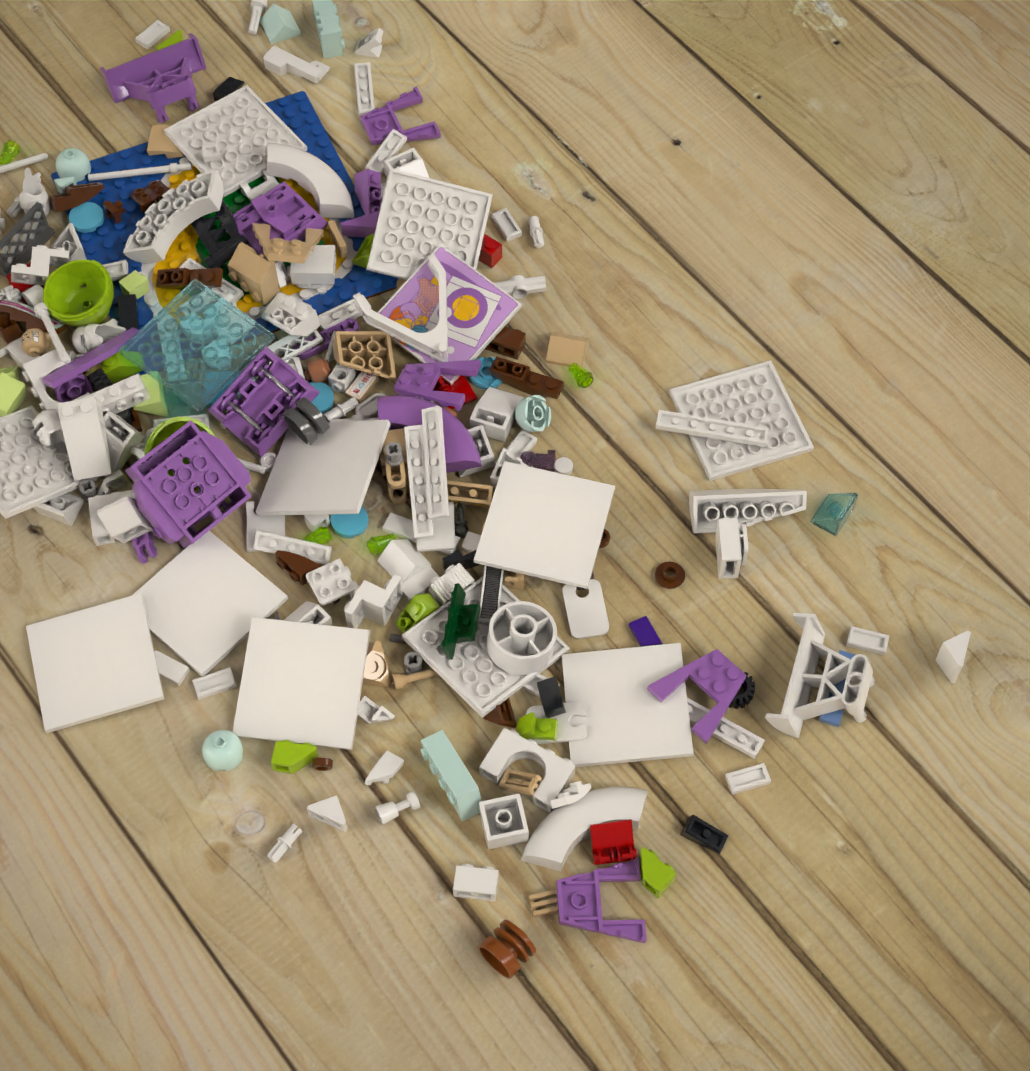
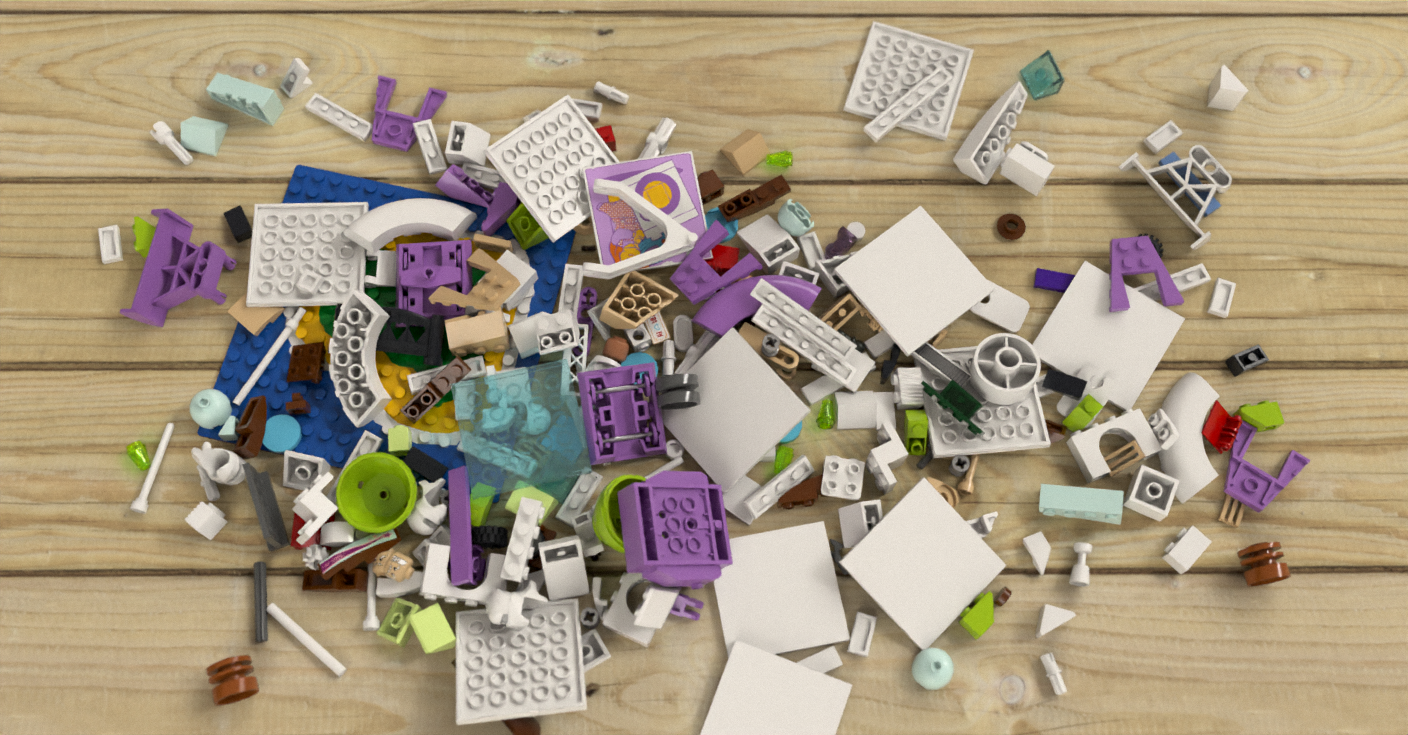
camera: 55 degrees left, 10 degrees up
(42, 312) = (371, 538): white piece -> none
(85, 438) = (550, 585): white slope -> none
(283, 62) = (249, 160): white piece -> none

